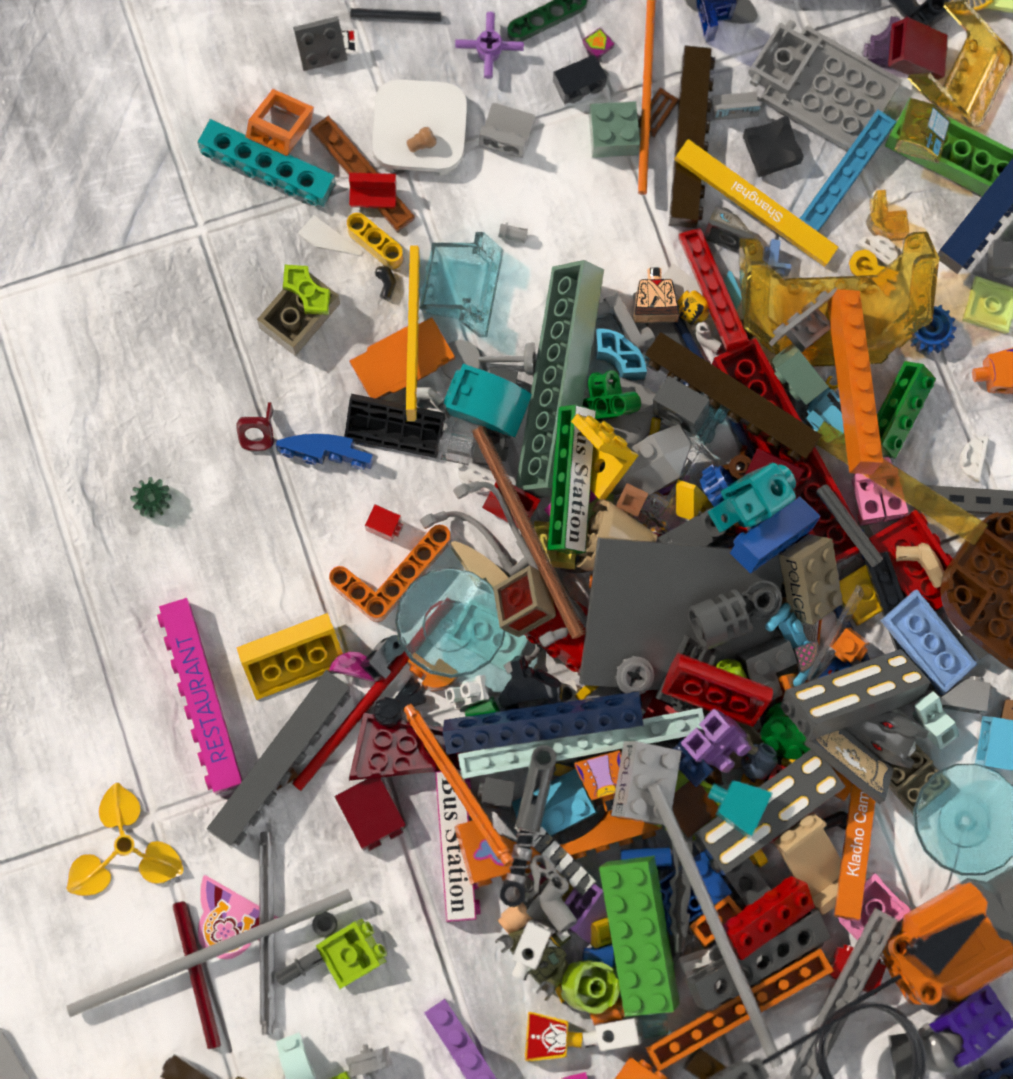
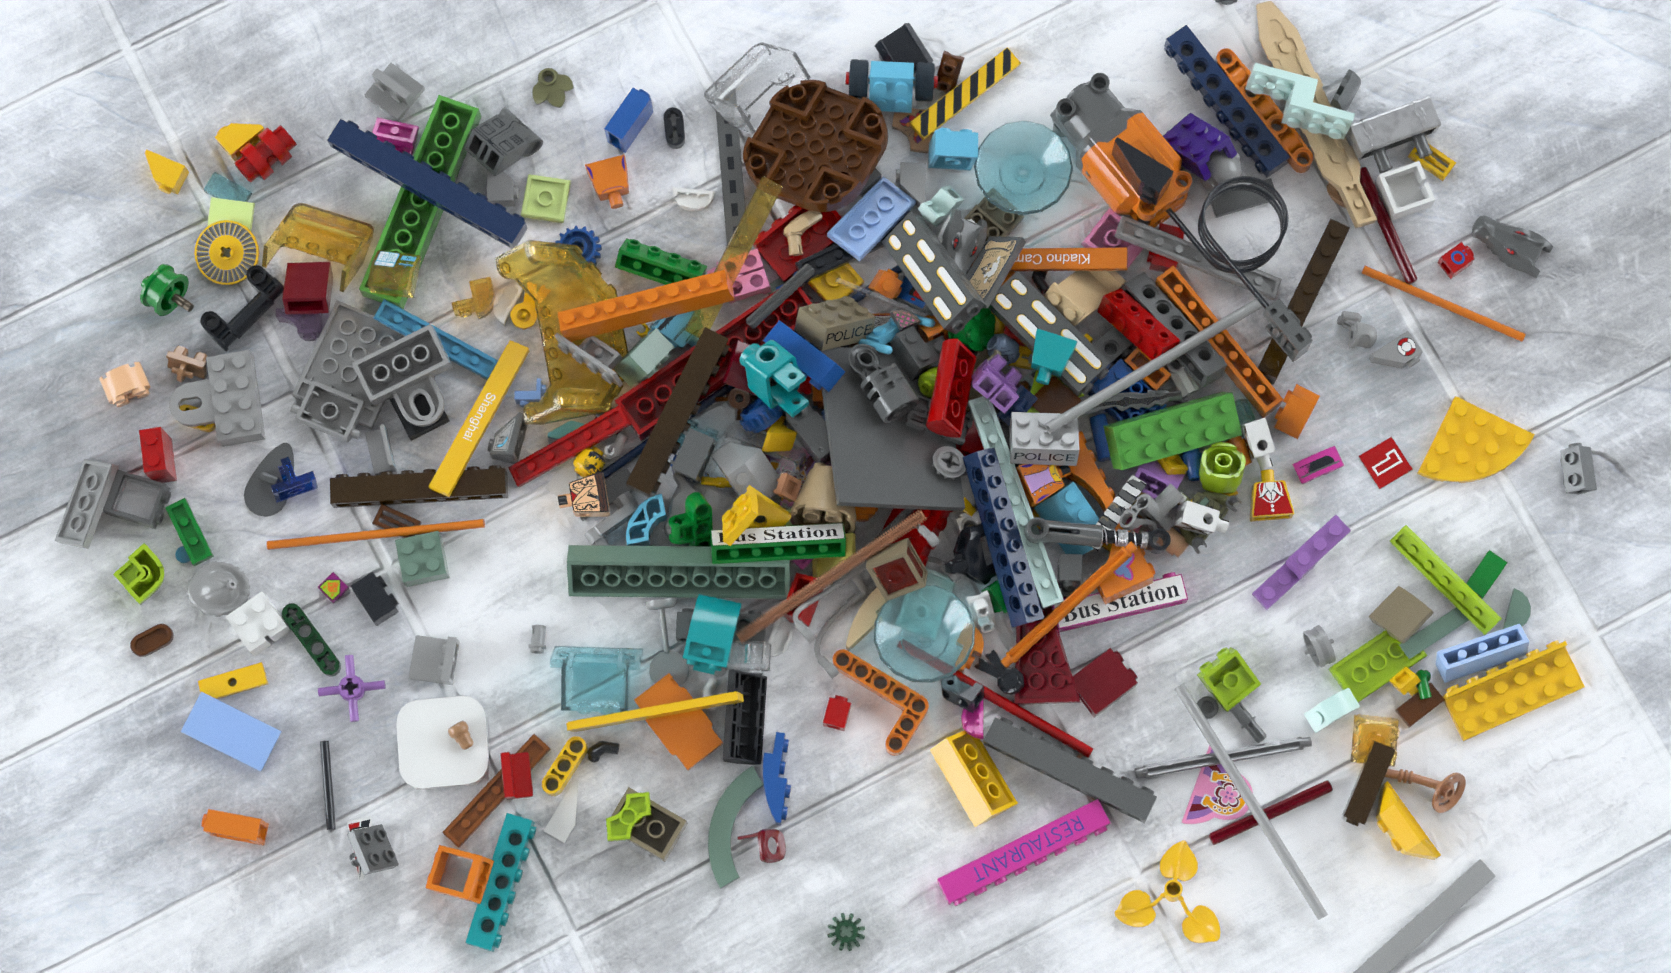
camera: 90 degrees left, 0 degrees up
(287, 390) = (722, 824): none -> sand green tile
(813, 131) = (406, 371): none -> light grey brick

